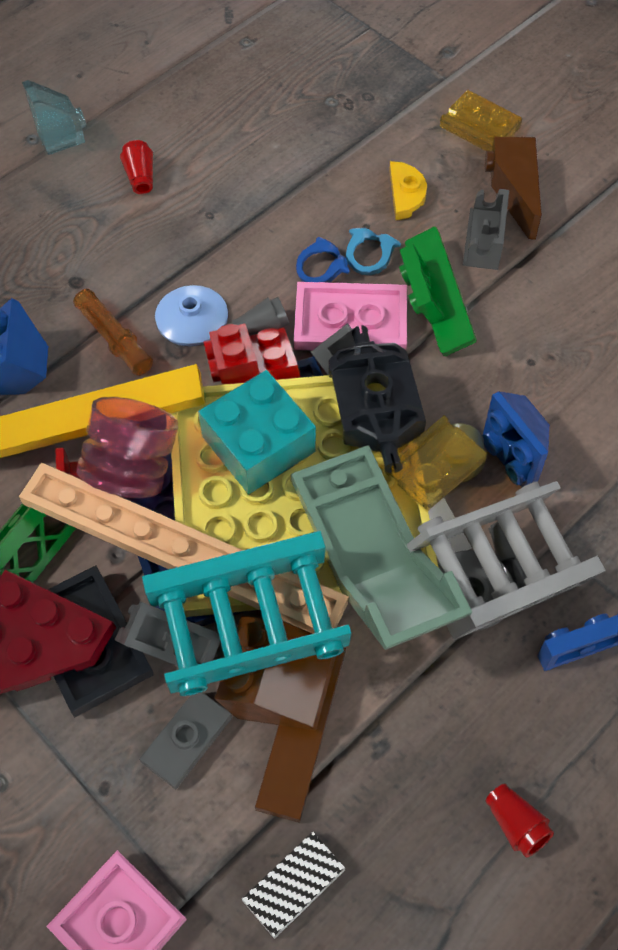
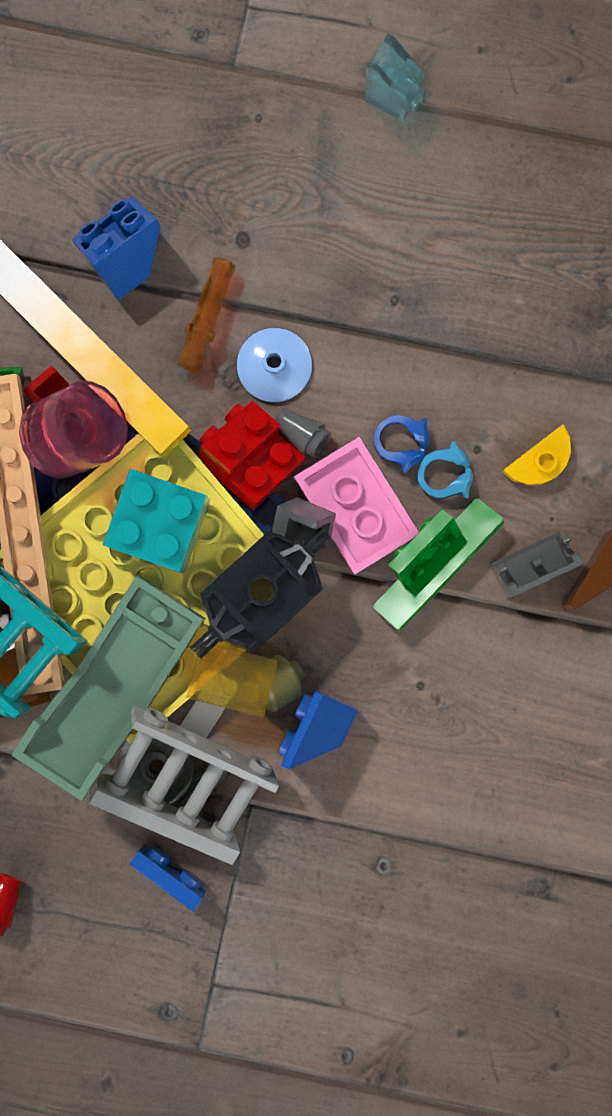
camera: 55 degrees right, 25 degrees up
(138, 165) = (399, 197): red cone -> none

